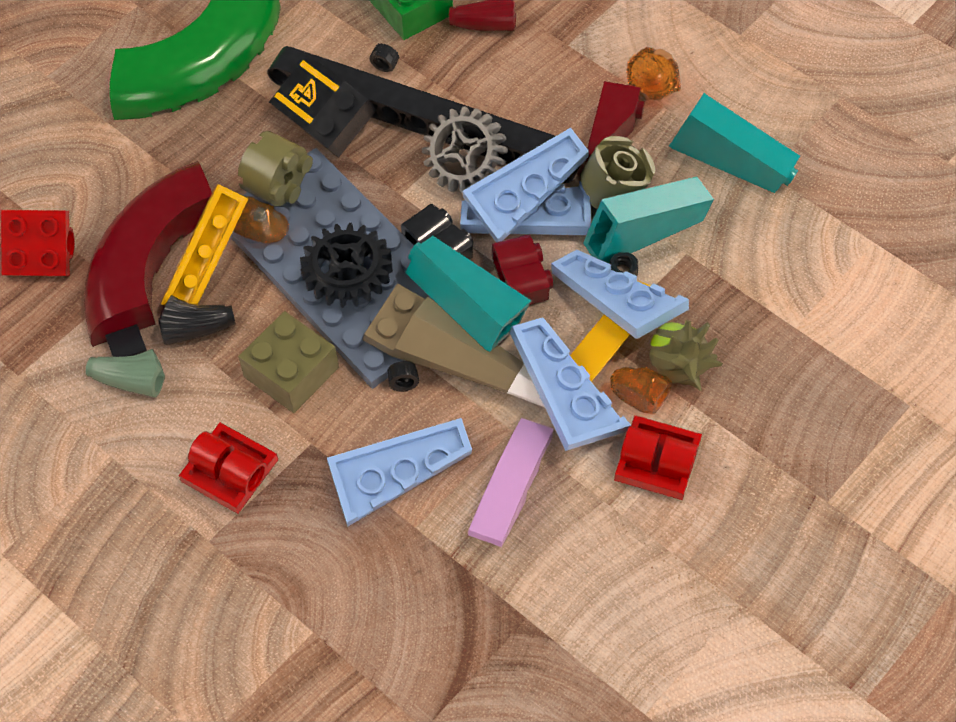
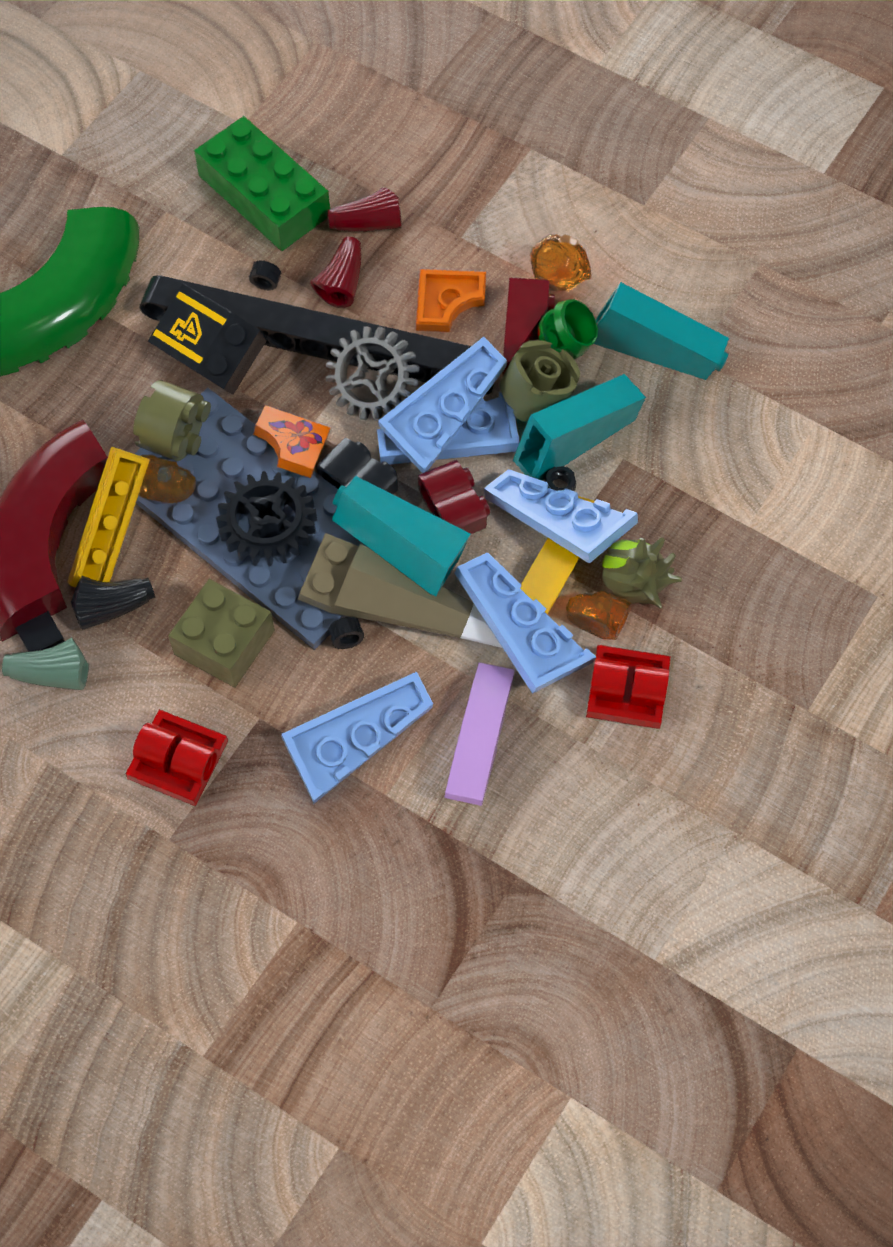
camera: 10 degrees left, 5 degrees up
(384, 200) = (294, 439): none -> orange tile
(451, 67) = (340, 278): none -> dark red piece
(544, 93) = (446, 295): none -> orange tile
(652, 129) = (569, 327): none -> green helmet

